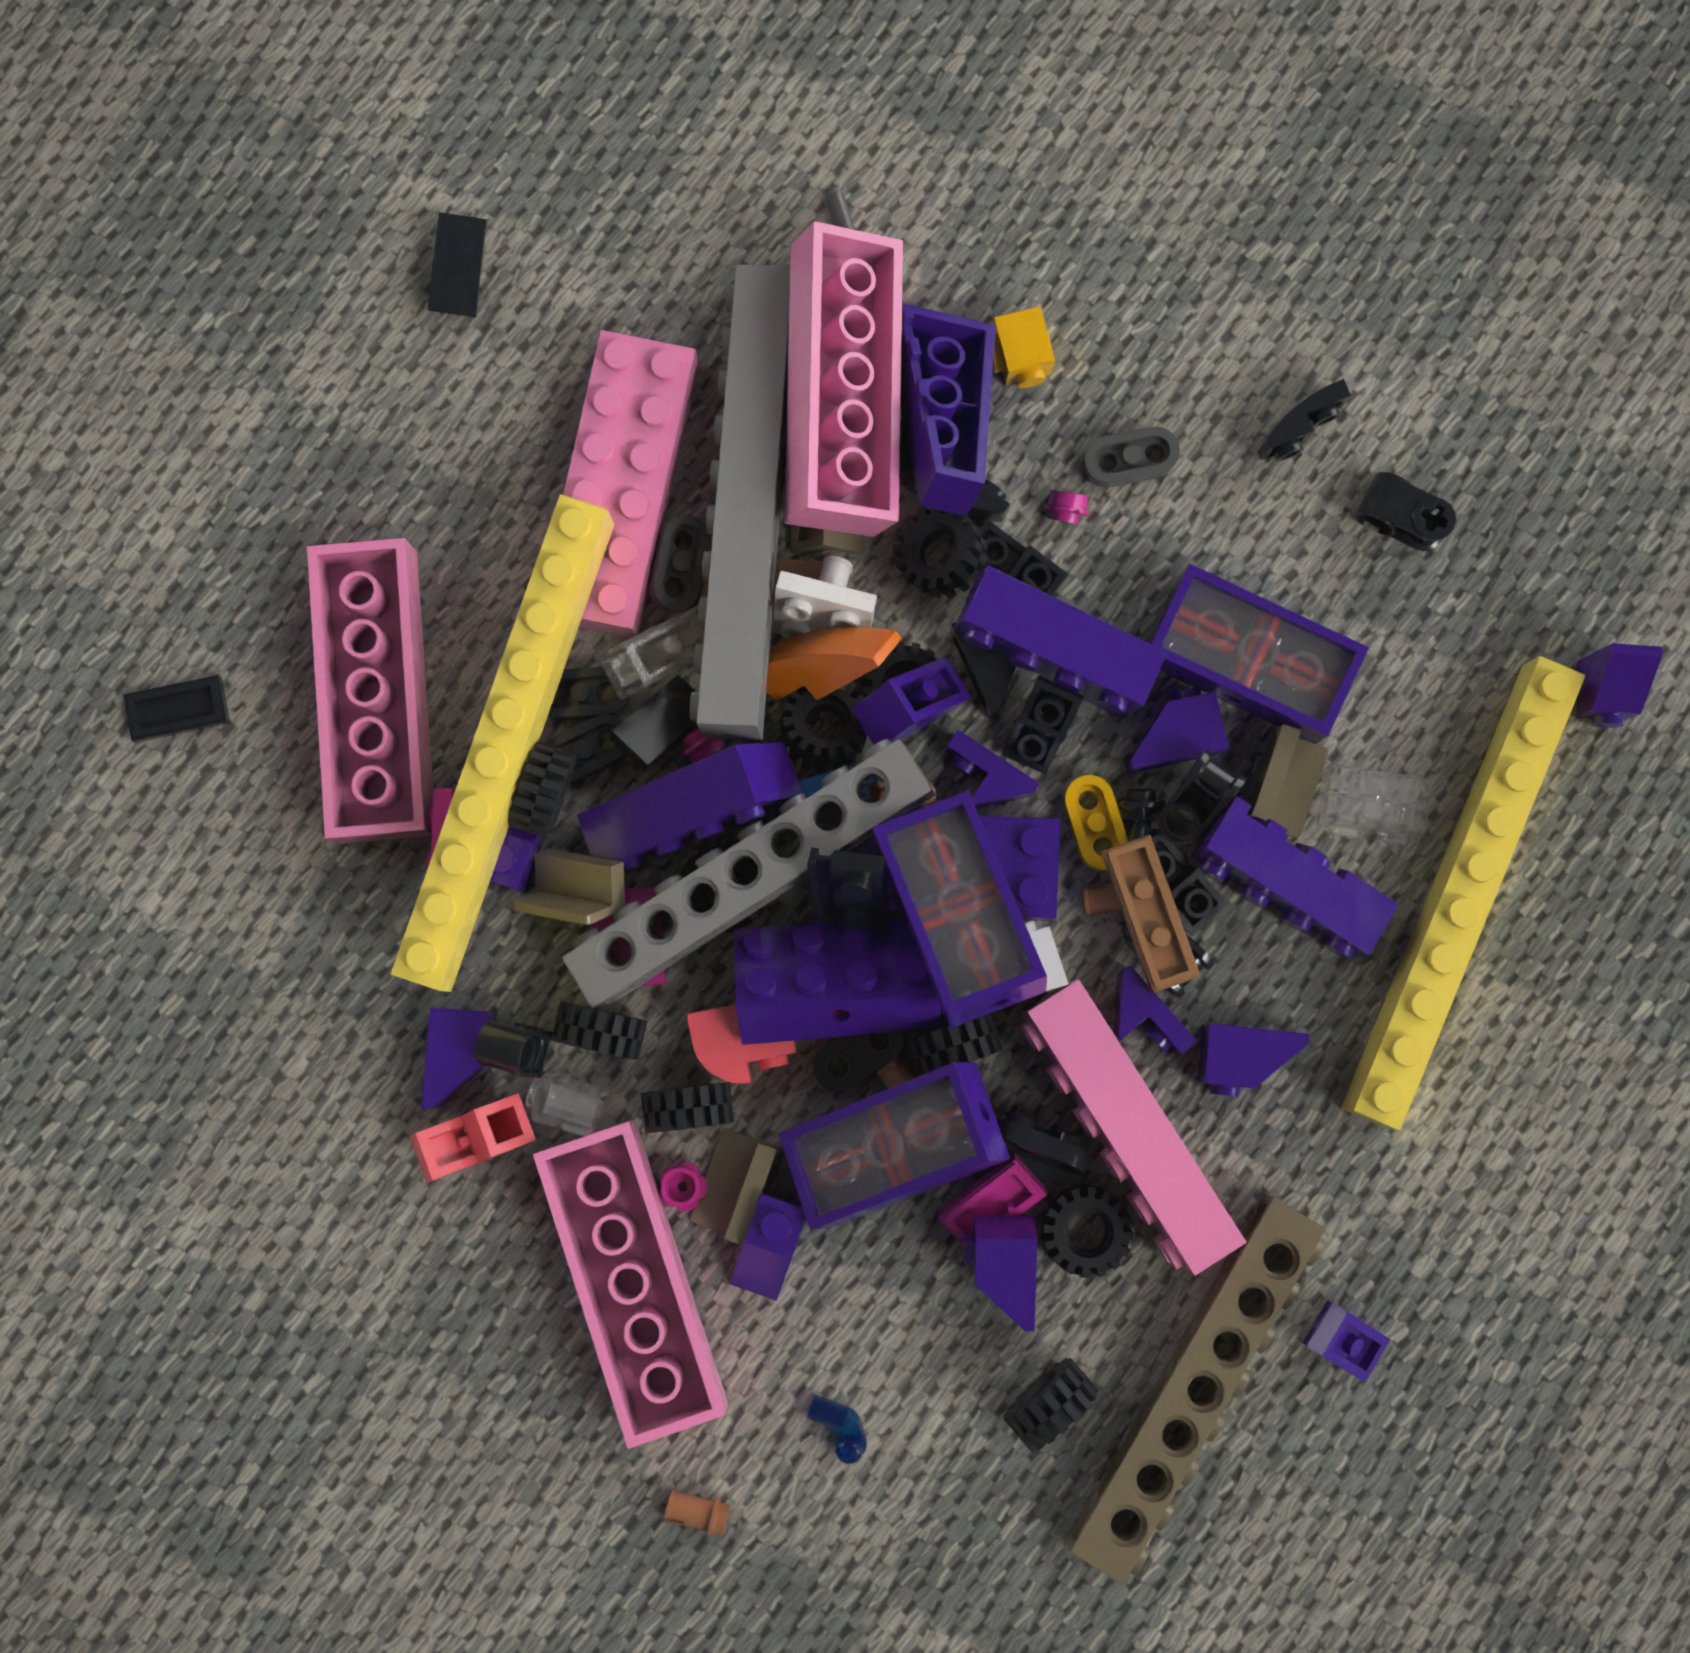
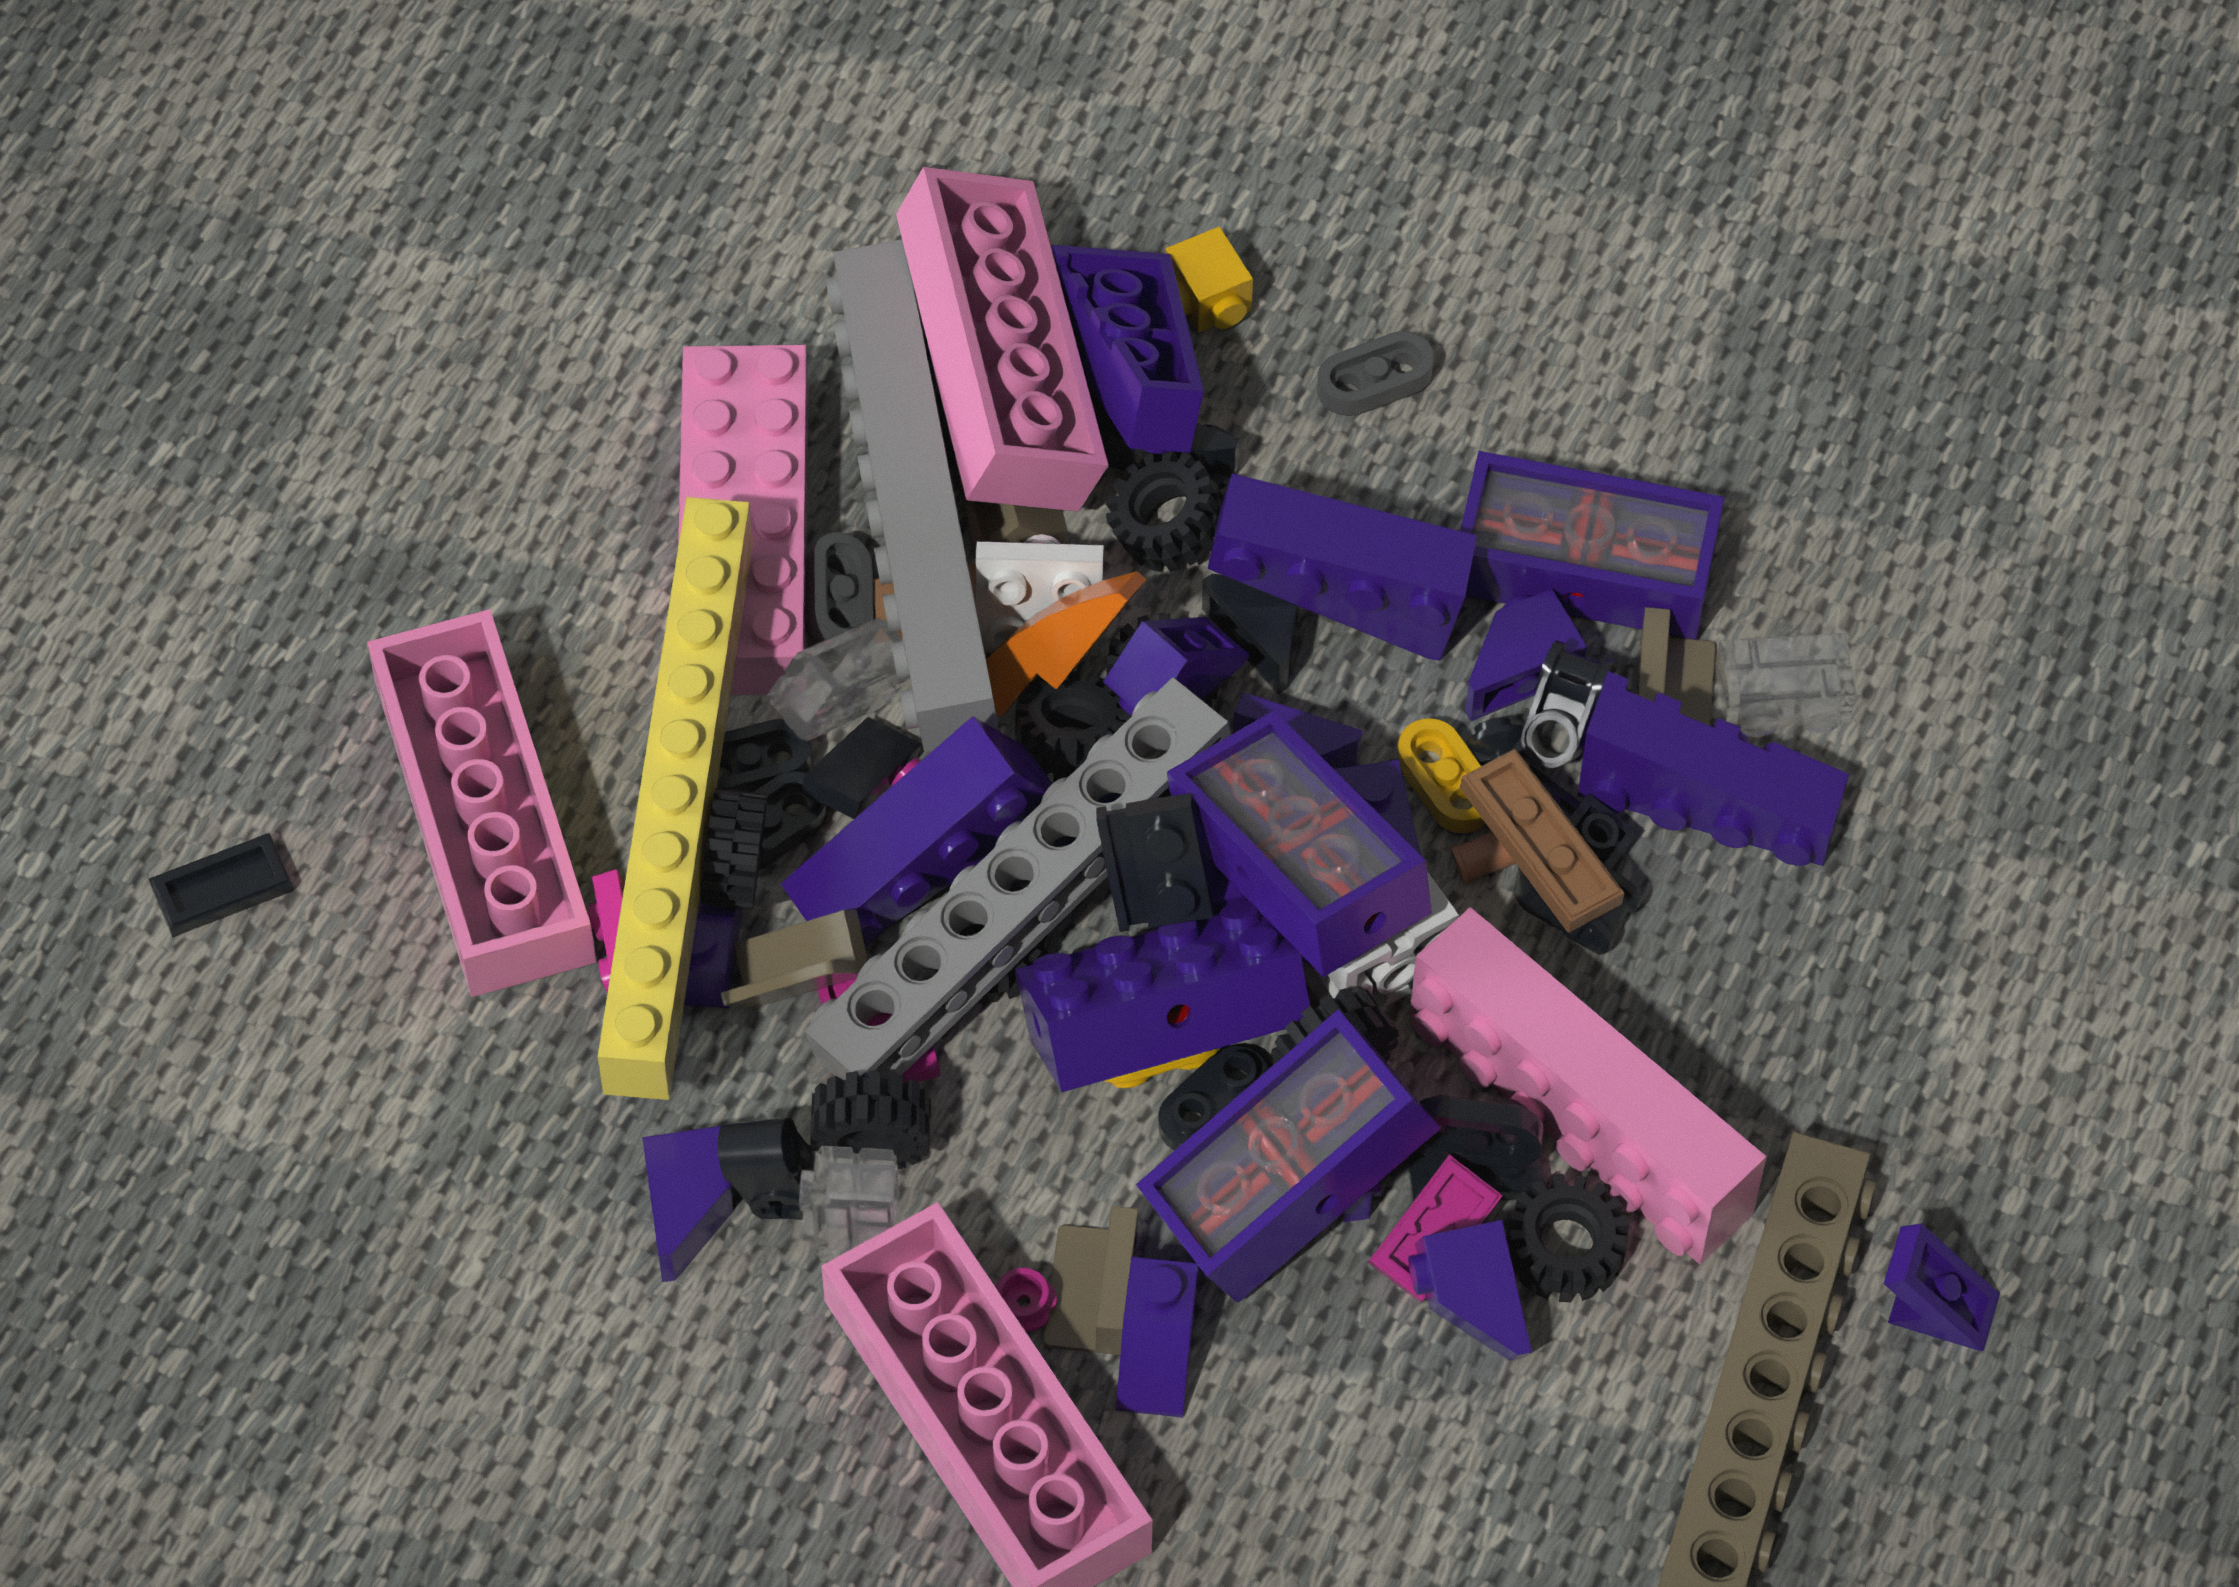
camera: 15 degrees left, 25 degrees down
(457, 264) = (479, 326): black slope -> none
(472, 1138) = (744, 1285): coral brick -> none
(687, 1107) = (1008, 1186): black tyre -> none
(720, 1050) = (1044, 1125): coral brick -> none
(844, 1425) = (1311, 1542): clear blue arm -> none
(1042, 725) = (1348, 664): black slope -> none
(1051, 1404) = (1576, 1435): black tyre -> none
(1067, 506) = (1311, 439): dark pink plate -> none
(1136, 1004) = (1579, 965): dark purple slope -> none
(1243, 1056) = (1709, 990): dark purple slope -> none
(1296, 427) = (1565, 302): black slope -> none
(1401, 512) = (1727, 365): black piece -> none
(1462, 893) = (1926, 763): light yellow brick -> none
(1616, 683) = (2039, 484): dark purple slope -> none

